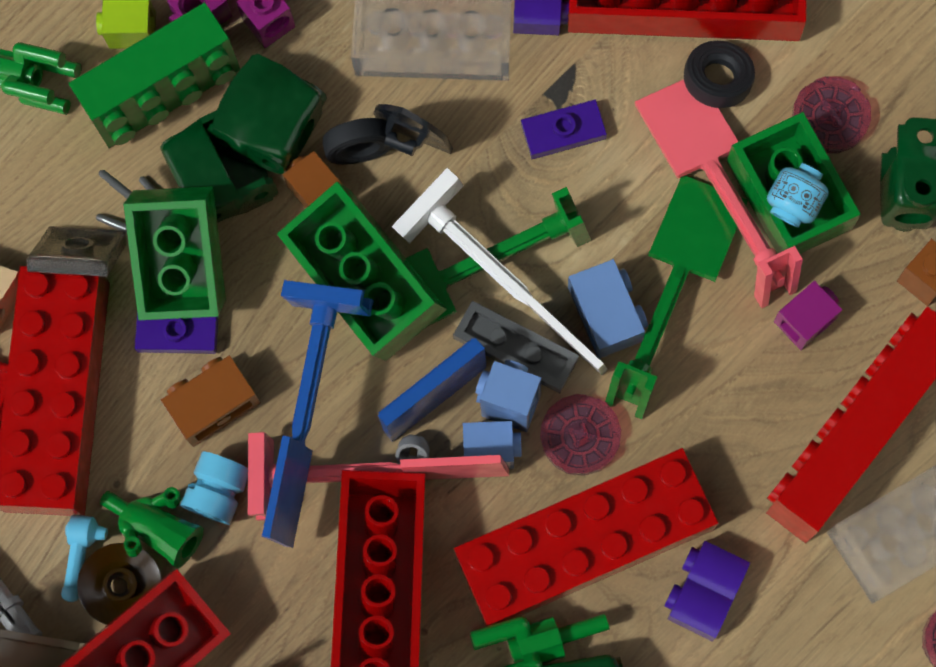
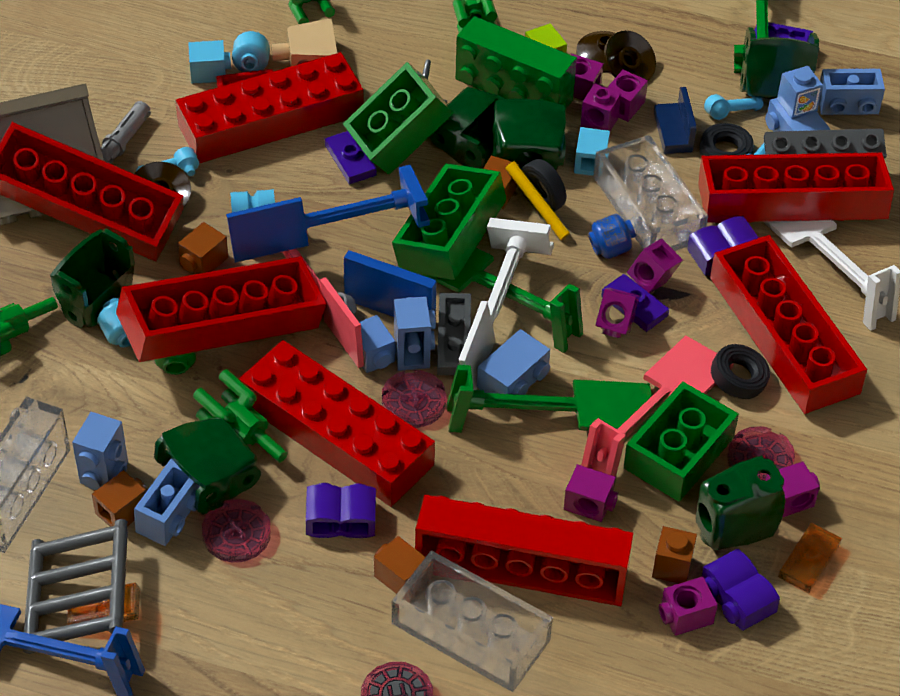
camera: 55 degrees right, 25 degrees down
(77, 251) = (365, 73): clear smoke tile -> none
(158, 529) = (208, 198): green piece -> none
(209, 400) = (315, 184): dark orange brick -> none
(245, 576) = (203, 249): none -> dark orange brick
(322, 57) = (588, 144): none -> medium azure brick
(369, 158) = (537, 200): none -> yellow bar
(412, 126) = (555, 206): black shield -> none
(464, 104) = (611, 236): none -> blue head
(539, 83) = (654, 266): none -> magenta brick
(570, 151) = (625, 300): none -> magenta brick
(797, 195) = (666, 422): medium azure head -> none
(813, 561) = (396, 563): none -> dark orange brick
(894, 105) = (799, 488): none -> magenta brick

